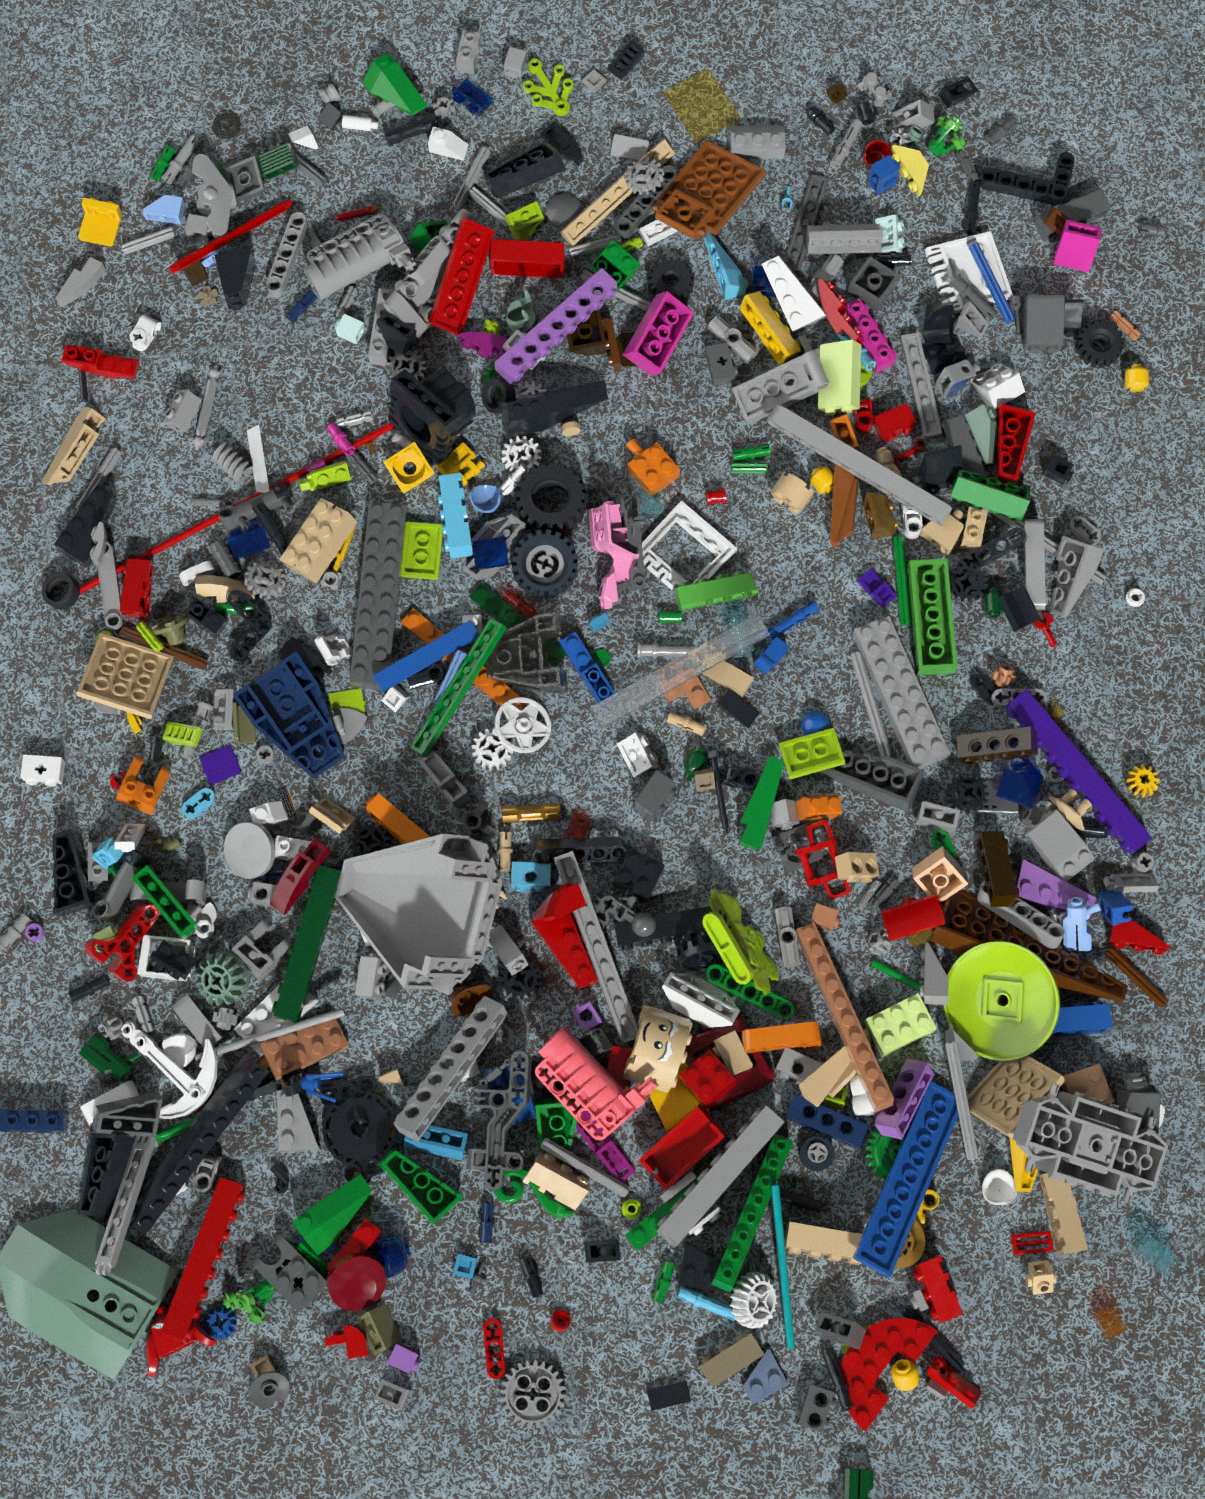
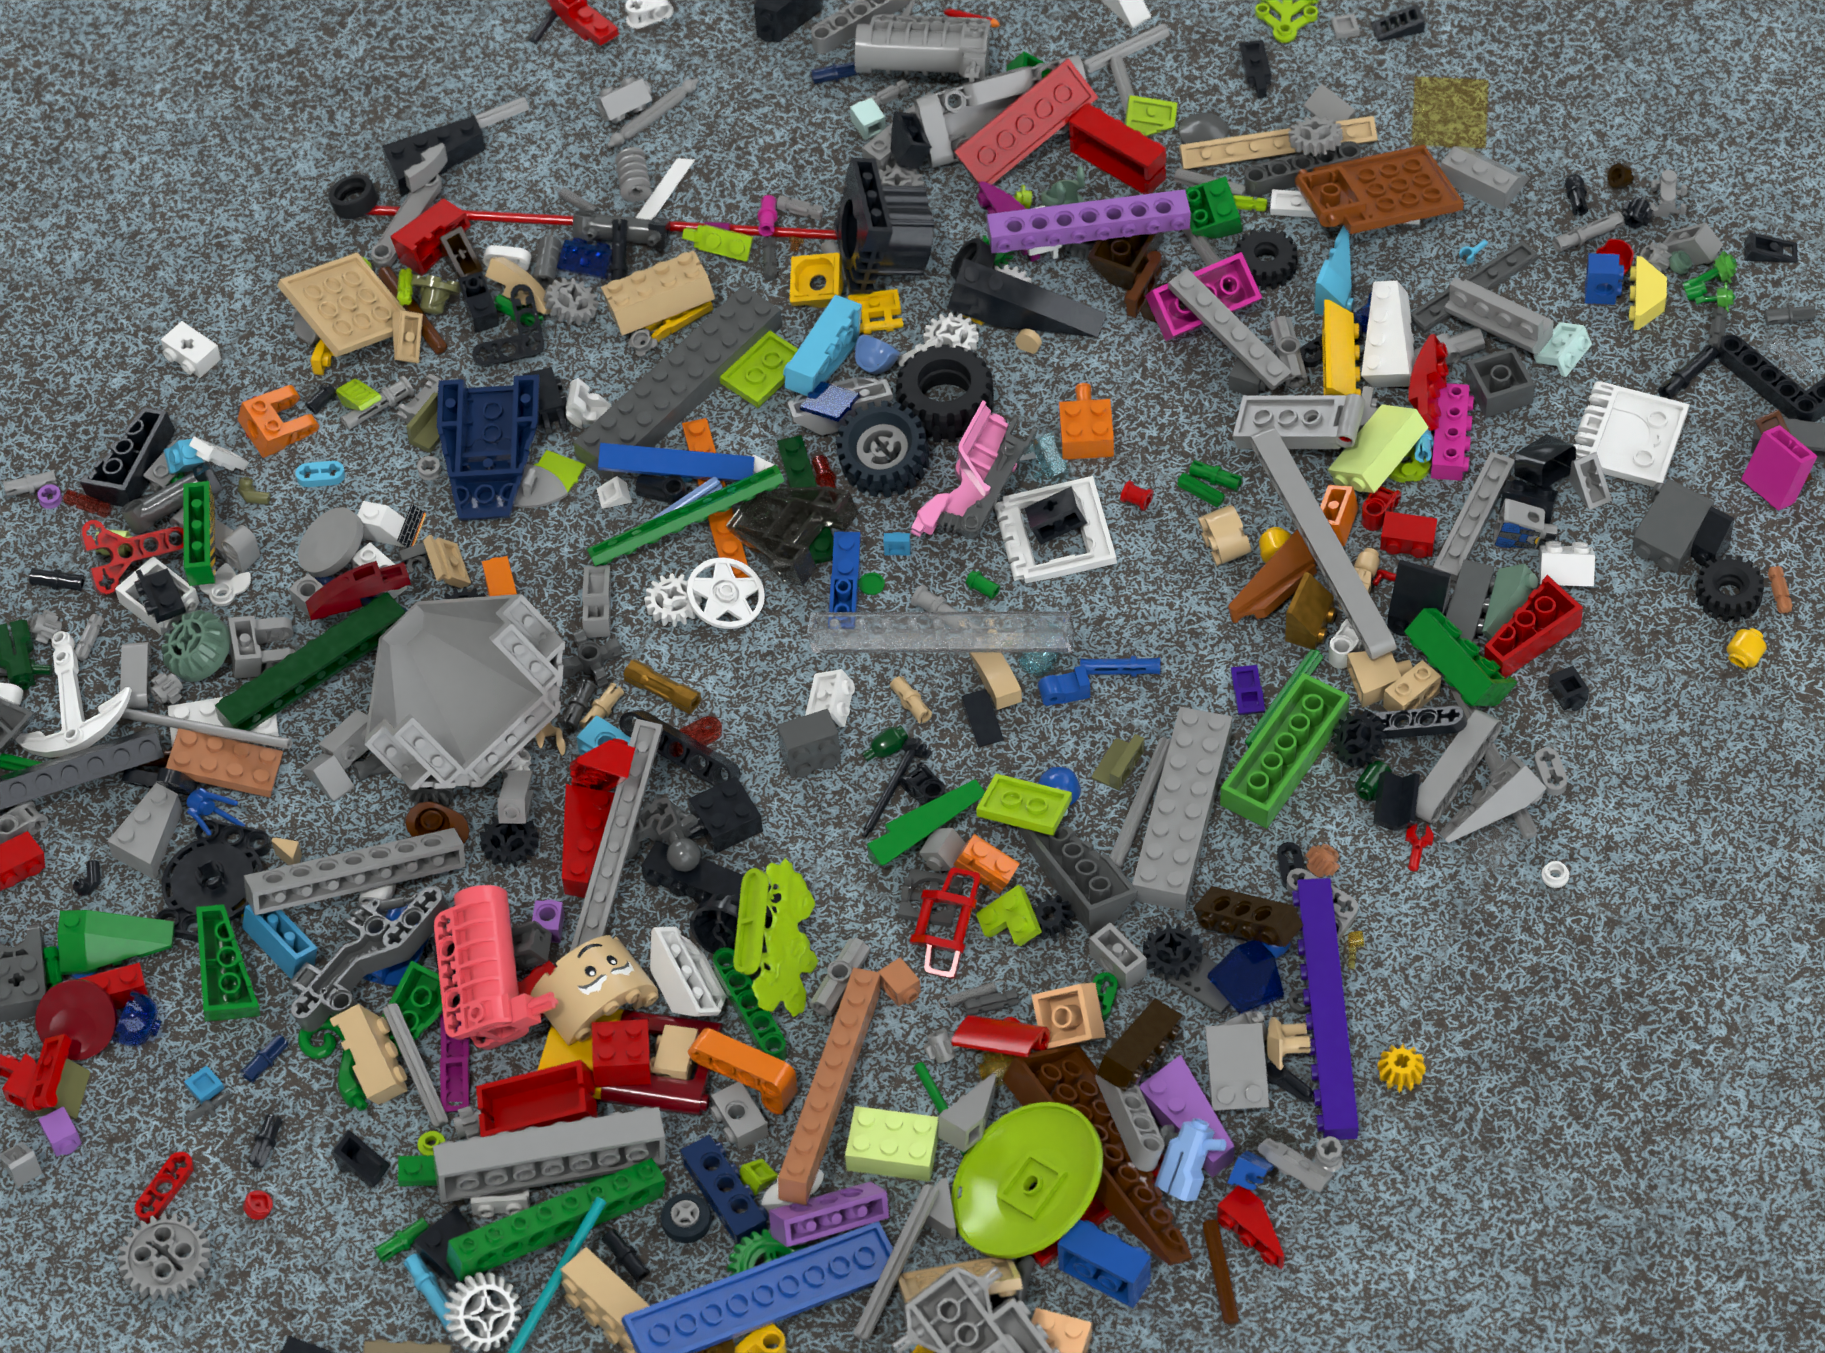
camera: 40 degrees right, 20 degrees down
(63, 921) = (87, 503): none -> clear red axle
(74, 447) = (485, 76): tan wedge -> none
(166, 590) = (459, 253): none -> dark brown slope
(178, 670) = (407, 335): none -> tan slope
(180, 1048) = (96, 688): white helmet -> none
(208, 296) = (744, 13): dark tan plant -> none
(220, 765) = (374, 452): dark purple piece -> none
(370, 1330) = (48, 1073): none -> red plate
(372, 1009) = (328, 776): none -> light grey slope
(524, 170) = (1185, 65): black wedge -> none
(645, 1182) = (467, 1123): none -> light grey gear
(681, 552) = (1055, 515): none -> black brick
(694, 692) = (947, 669): nougat plate -> none
(696, 349) = (1229, 329): none -> light grey plate
(704, 779) = (881, 765): dark tan plate -> none
(715, 591) = (1051, 583): bright green wedge -> none
(830, 1076) = (767, 1138): tan wedge -> none
(838, 685) = (1119, 762): none -> olive panel
(857, 866) = (982, 944): tan brick -> none
(858, 827) = (1010, 911): none -> lime plate
(873, 821) = (1059, 910): none -> black gear
(894, 260) = (1547, 374): black pin -> none
(967, 291) = (1605, 446): dark grey pin -> none
(991, 282) = (1644, 454): blue axle -> none

